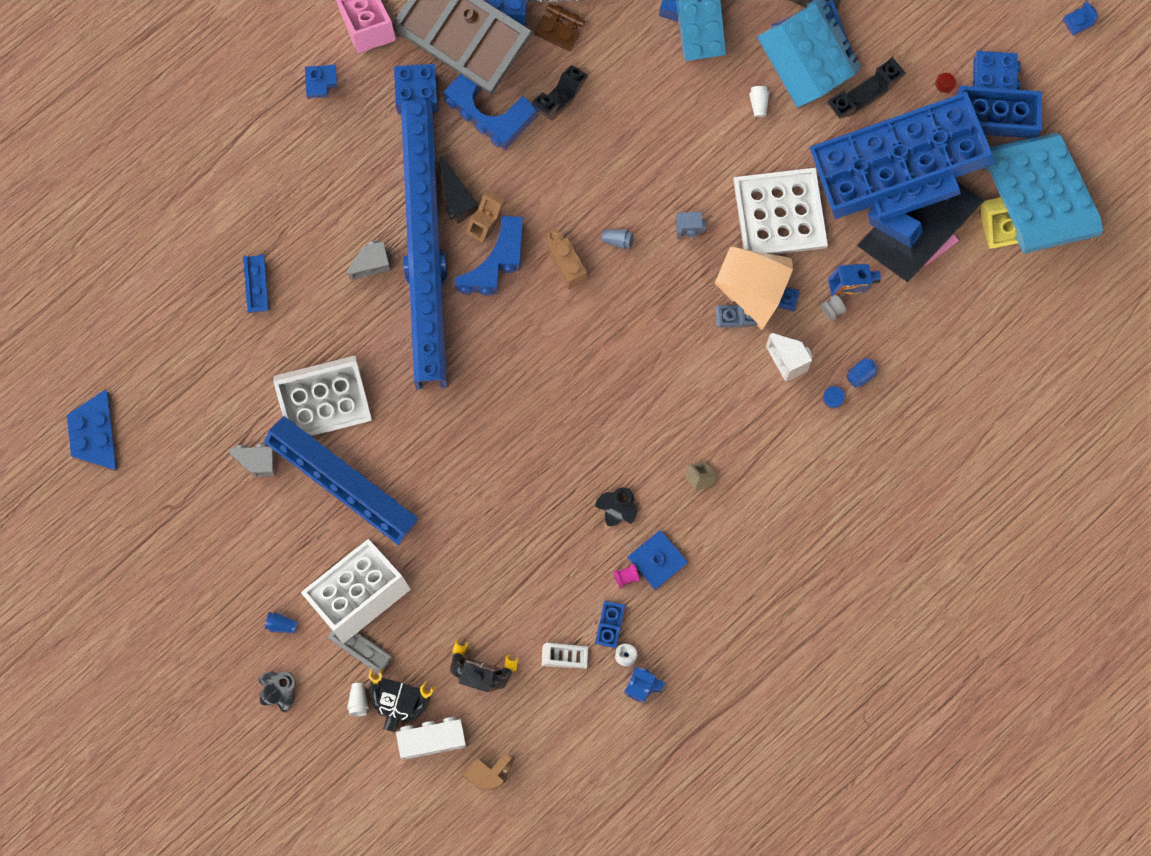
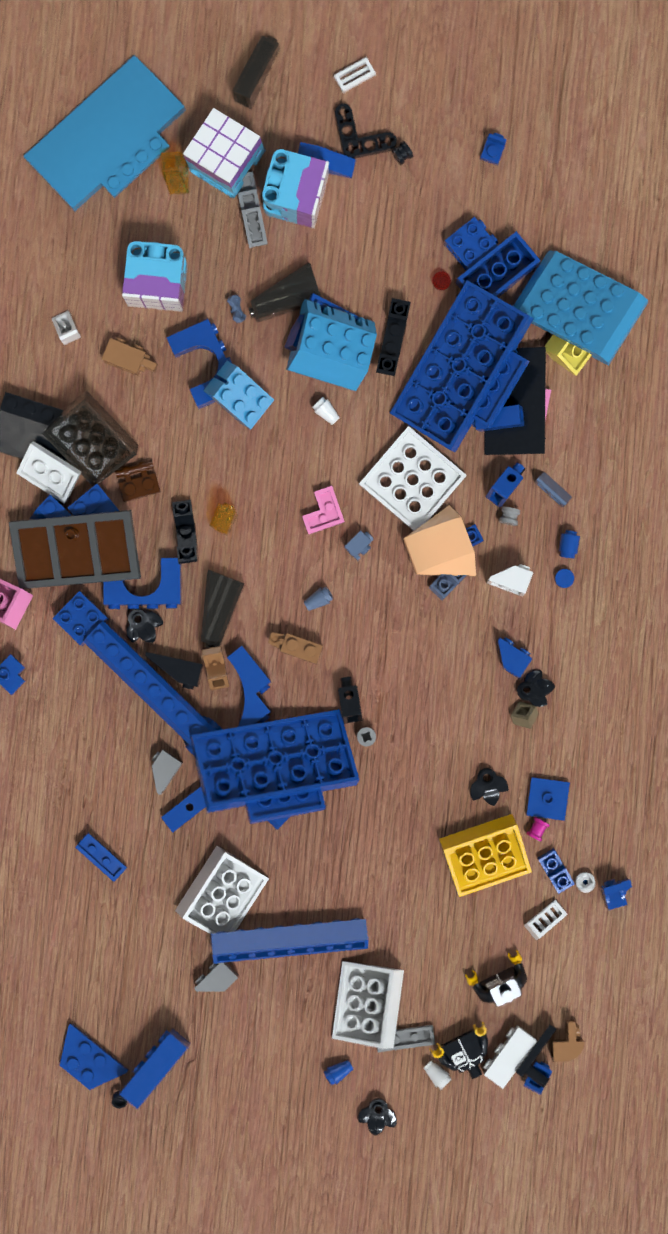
camera: 35 degrees left, 10 degrees up
(86, 484) = (118, 1101): none -> black hinge
(138, 482) = (153, 1070): none -> blue brick
(350, 306) = (180, 814): none -> blue tile
(437, 758) = (527, 1068): none -> black piece
(438, 778) = (530, 1084): none -> blue bracket
(458, 140) = (145, 627): none -> black plate
(460, 329) = (275, 765): none -> blue slope
(533, 175) = (219, 607): none -> clear smoke slope
(556, 382) = (366, 736): none -> light grey wheel
(563, 558) = (485, 855): none -> yellow slope
(567, 338) = (350, 707): none -> black torso
(600, 109) = (223, 518): none -> clear yellow slope
(686, 180) = (329, 512): none -> bright pink plate
(730, 464) = (538, 688): none -> black plate
(732, 423) = (512, 659): none -> blue slope
(888, 319) = (553, 489): none -> sand blue slope

